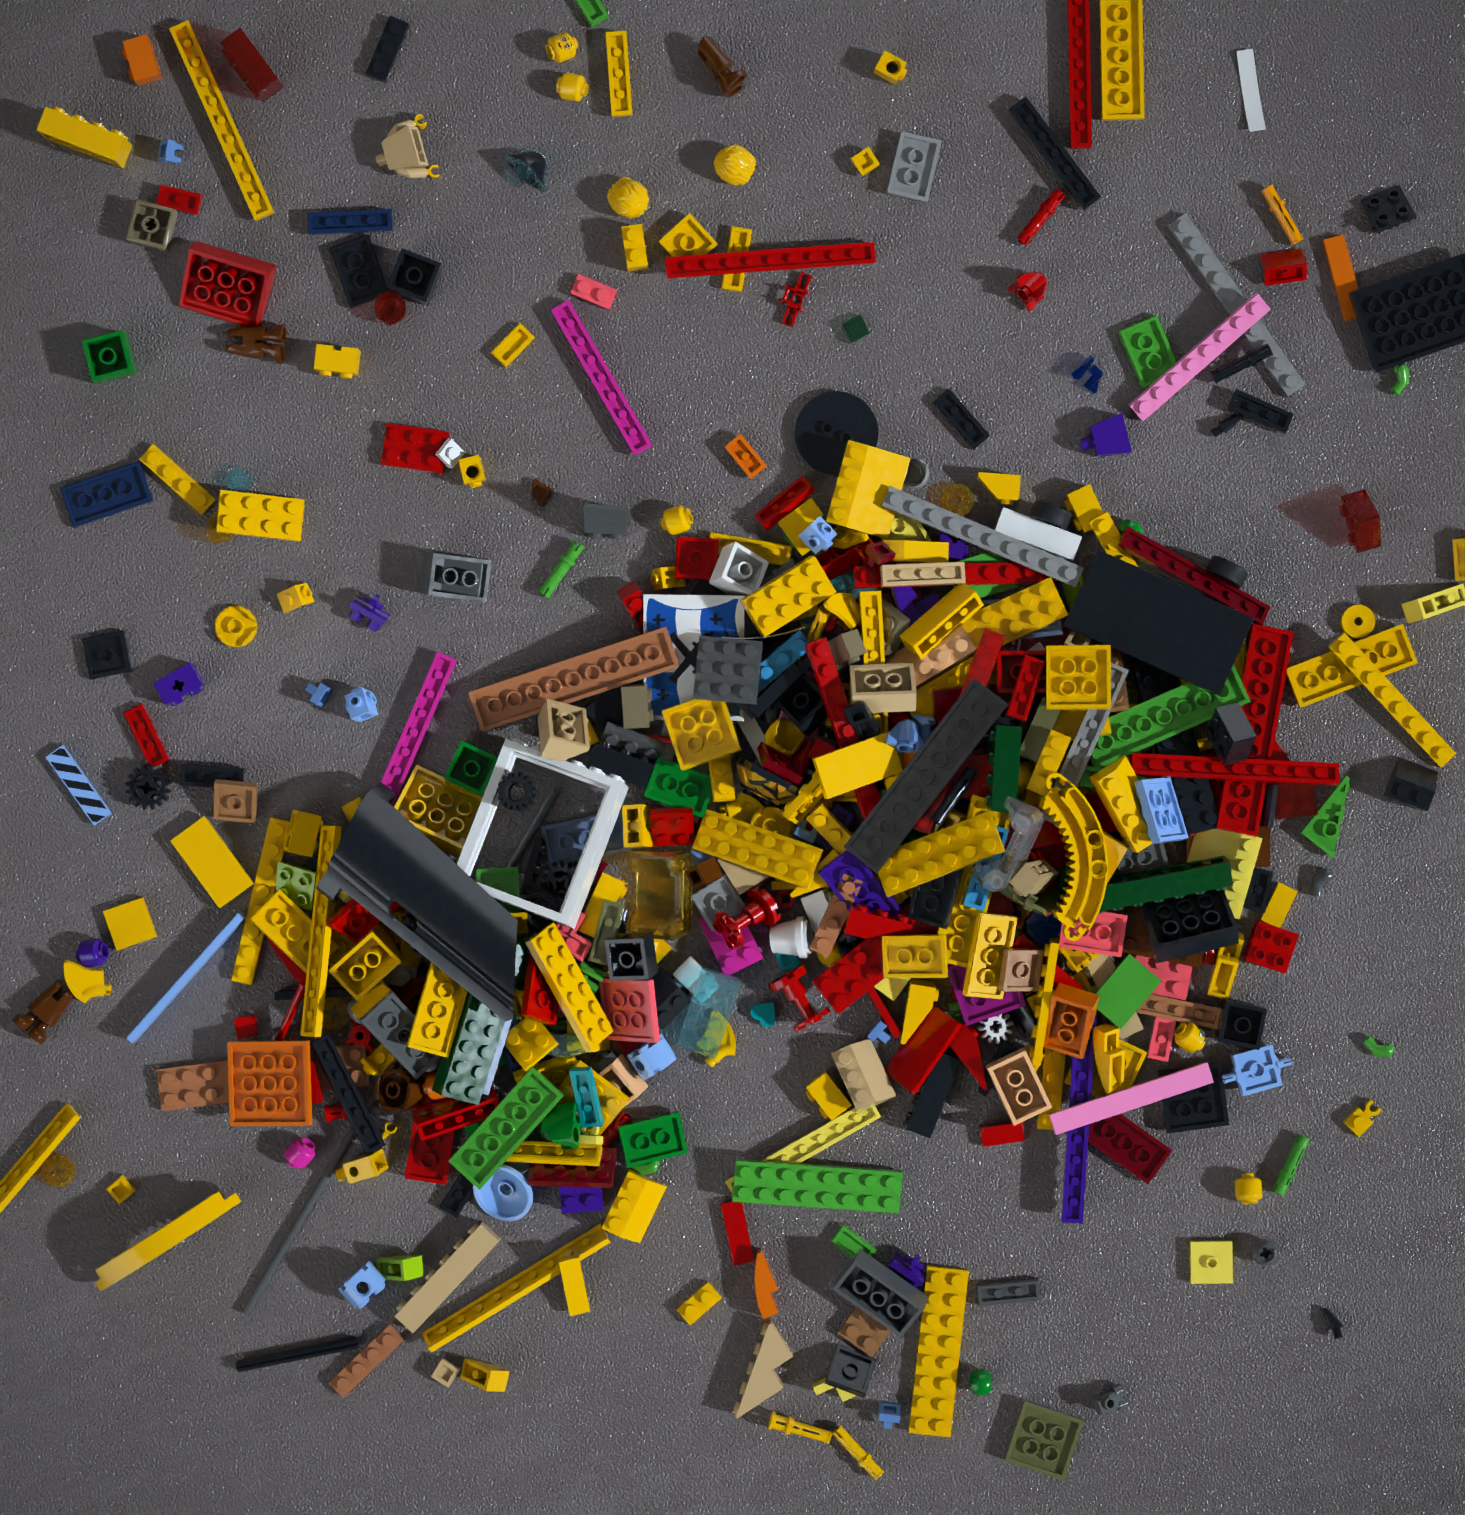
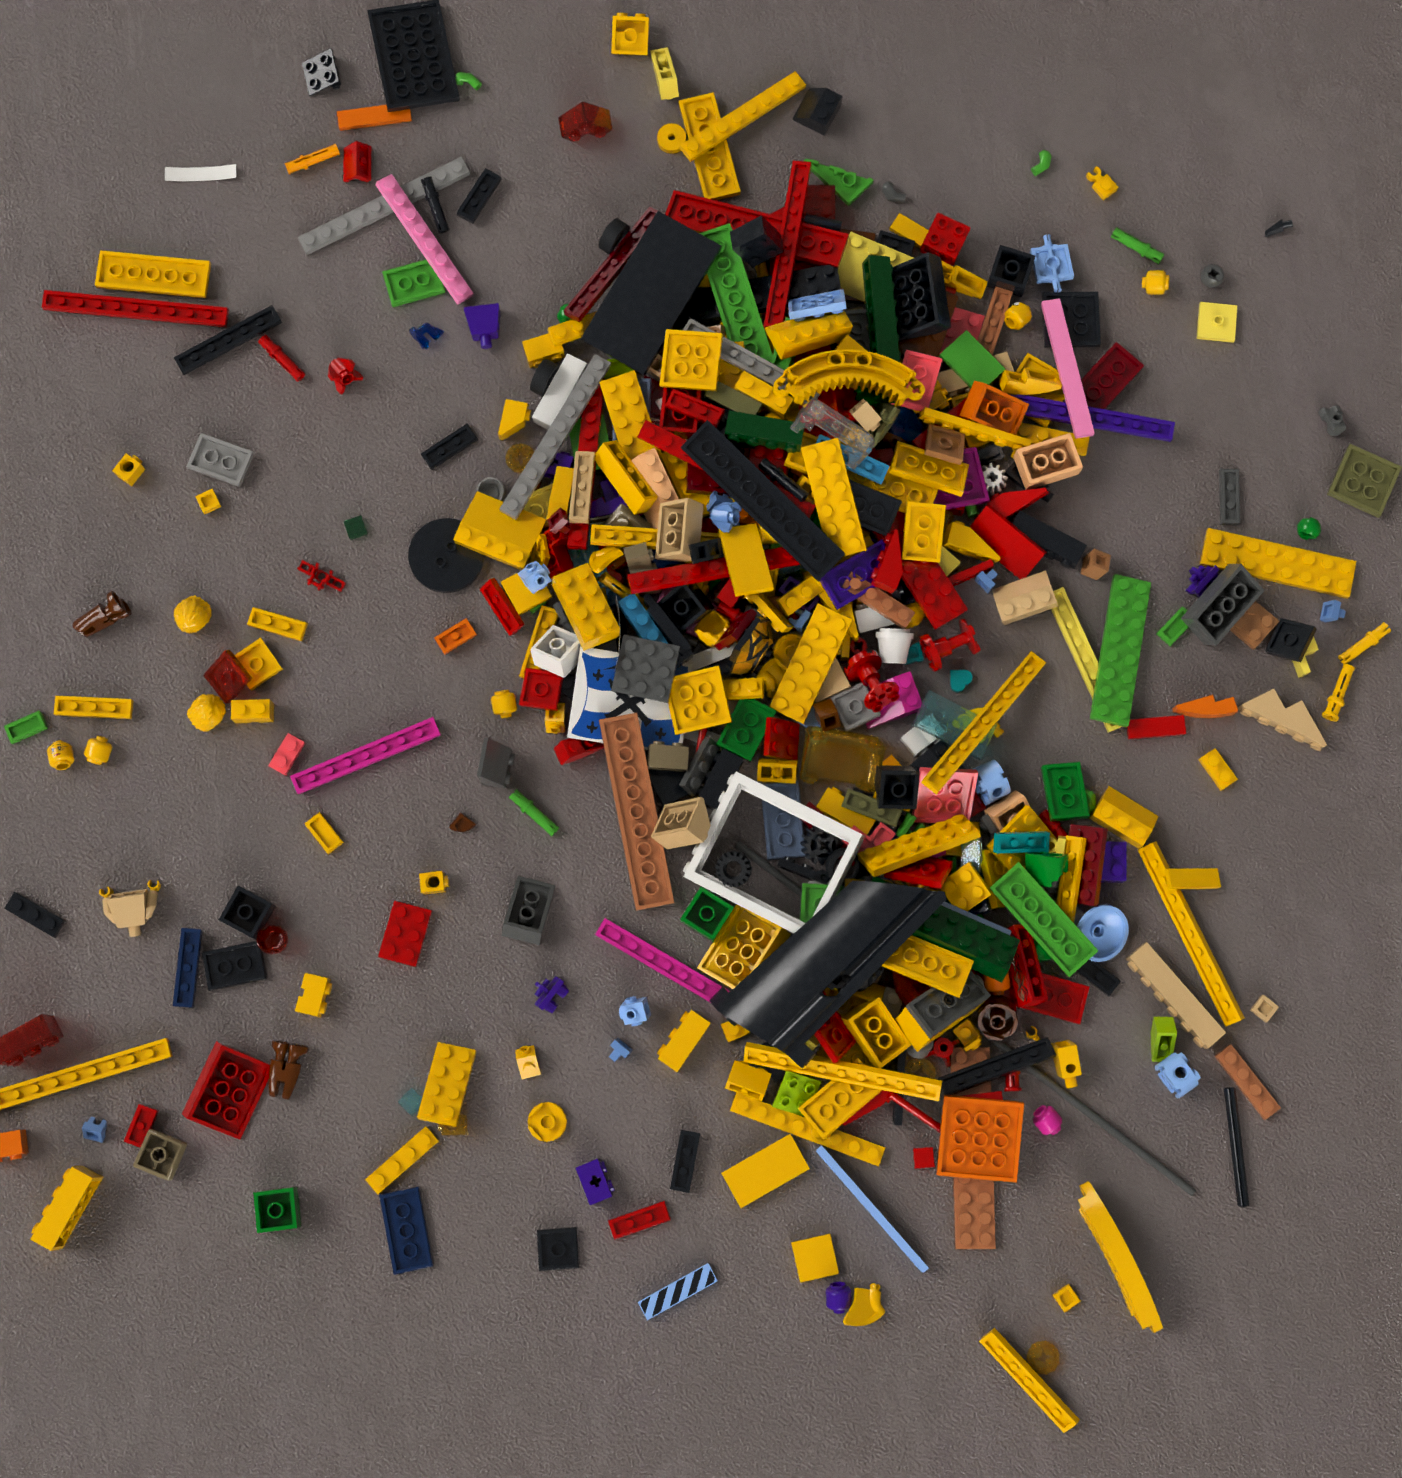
camera: 90 degrees left, 10 degrees down
(46, 1009) = (887, 1348): reddish brown piece -> none
(146, 796) = (690, 1213): black gear -> none
(235, 801) = (710, 1140): medium nougat plate -> none
(336, 759) = (683, 1040): none -> yellow brick
(450, 453) = (414, 901): white plate -> none
(484, 1375) = (1269, 972): yellow slope -> none
(529, 166) = (164, 797): clear light blue hat -> none
(669, 215) = (227, 676): none -> clear red plate
(713, 1044) = (983, 723): none -> yellow plate
(770, 260) = (282, 593): red plate -> none
(827, 1095) = (1039, 631): yellow brick -> none
(909, 1150) = (1095, 564): none -> medium nougat brick
(1001, 1133) = (1087, 486): red panel -> none
(1161, 1039) = (1016, 340): coral plate -> none
(1226, 425) = (487, 226): black bar -> none

